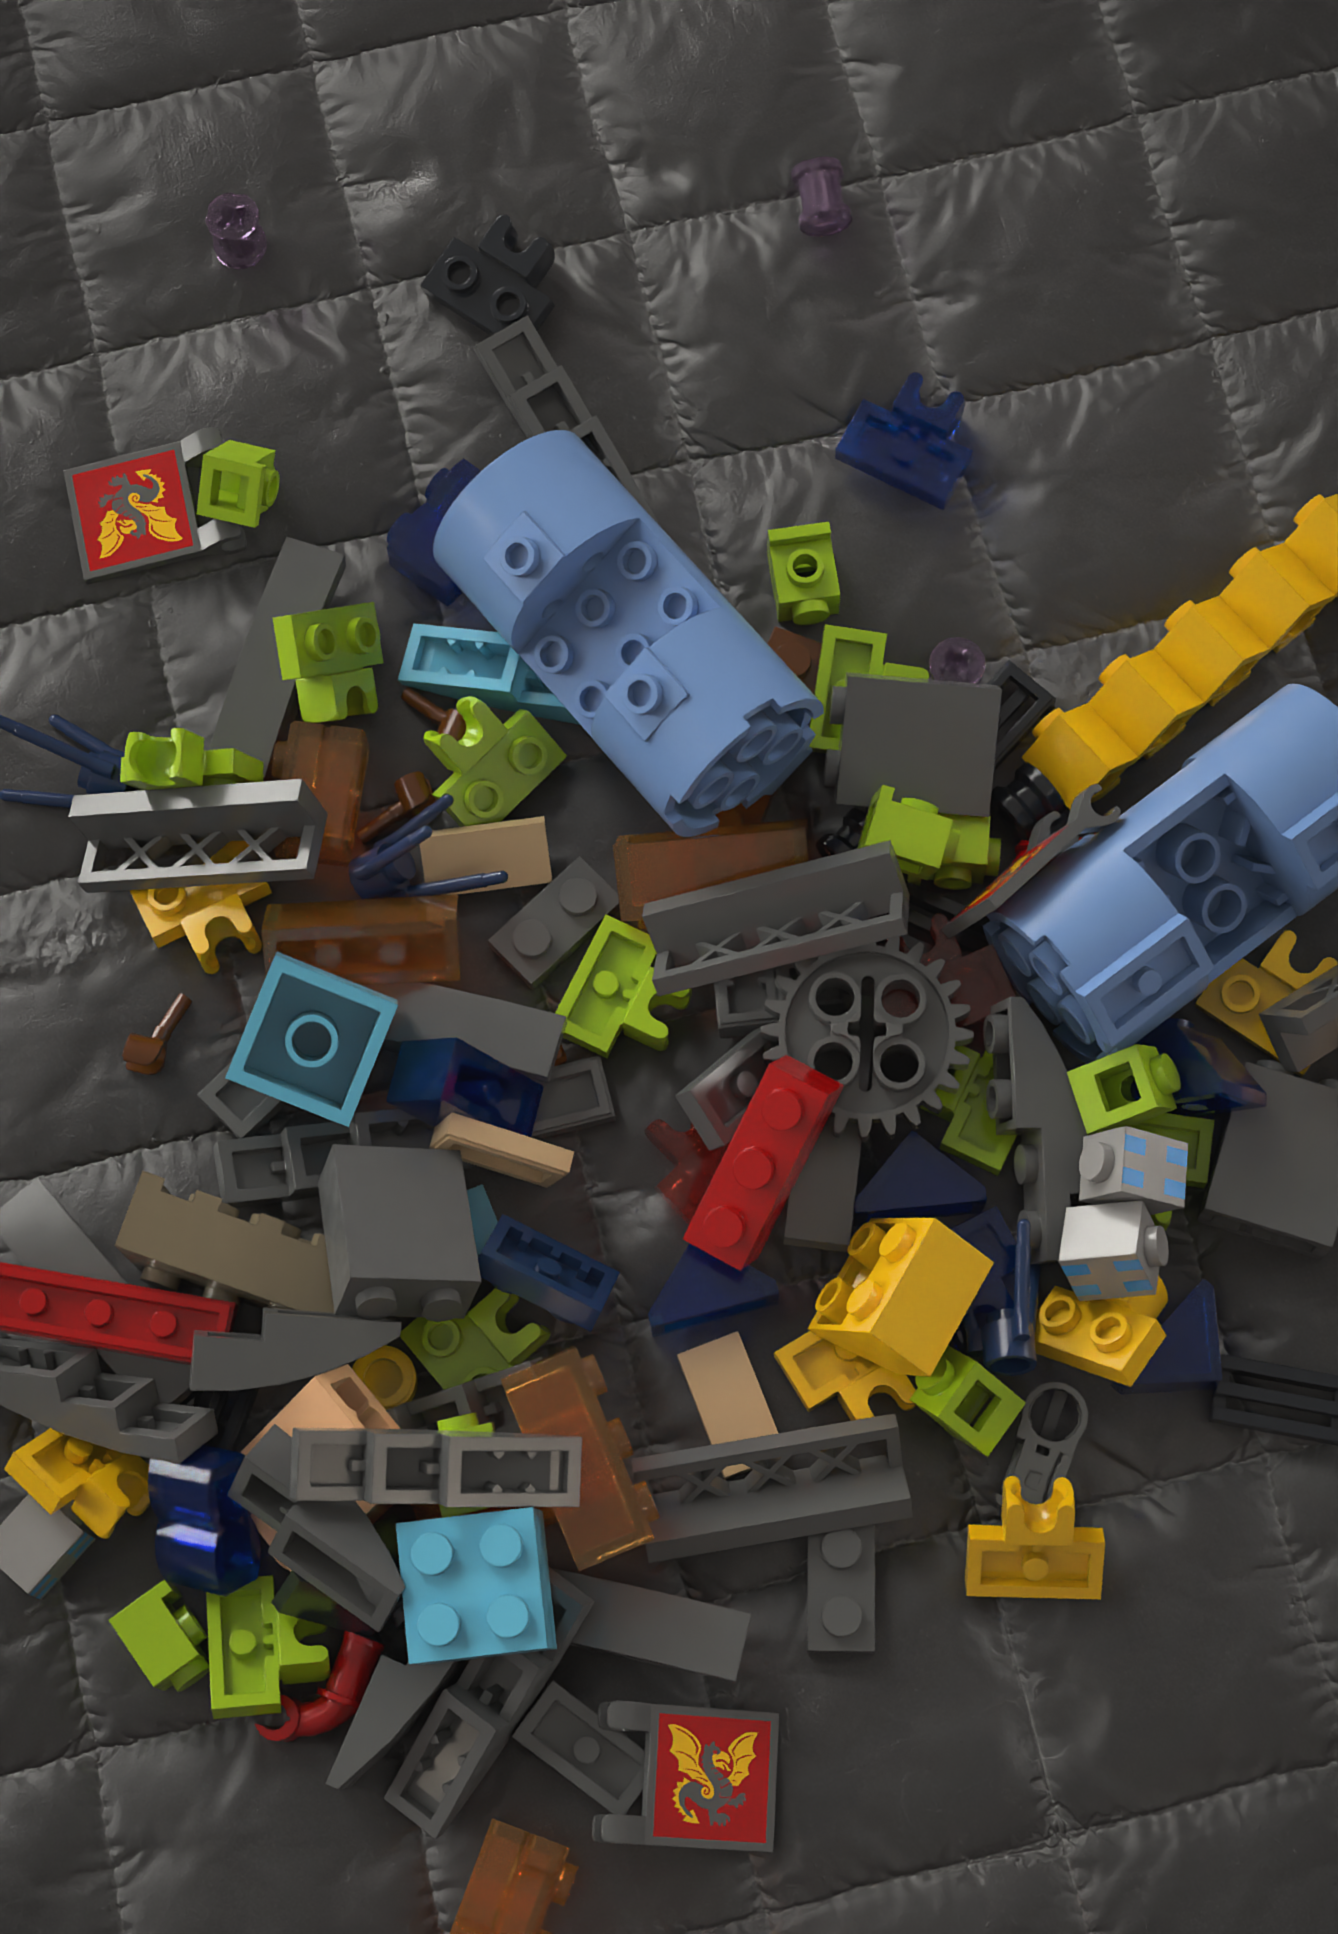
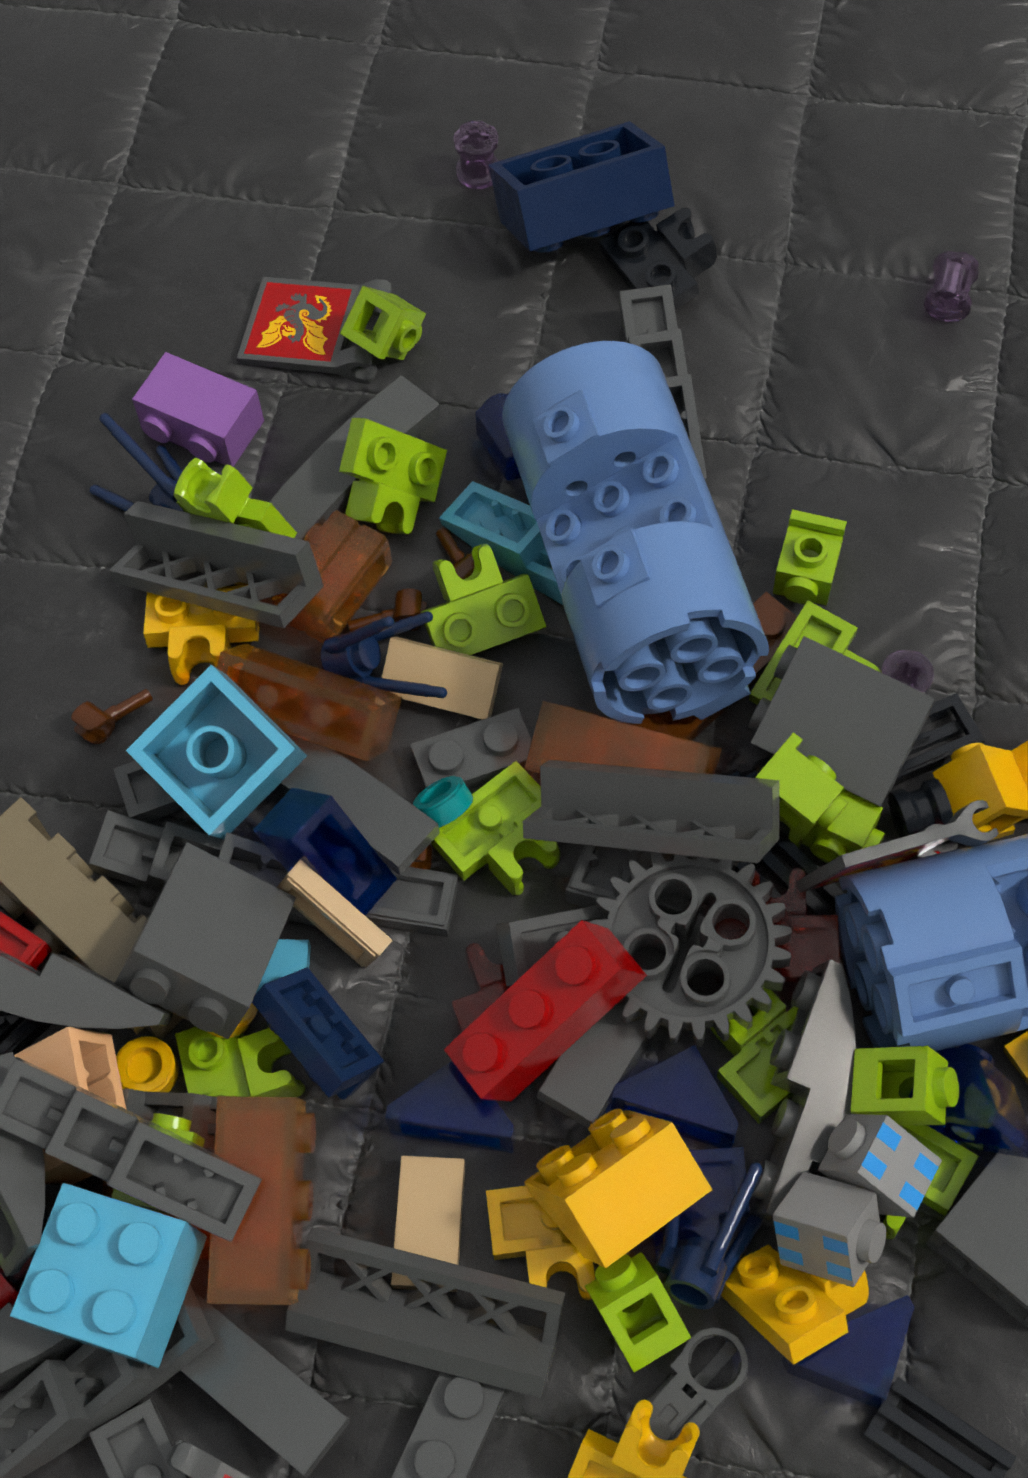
camera: 25 degrees right, 10 degrees down
(78, 662) = (198, 410): none -> medium lavender brick
(378, 233) = (582, 186): none -> dark blue brick
(554, 986) = (444, 800): none -> teal tile
(909, 444) = (944, 495): clear blue plate -> none

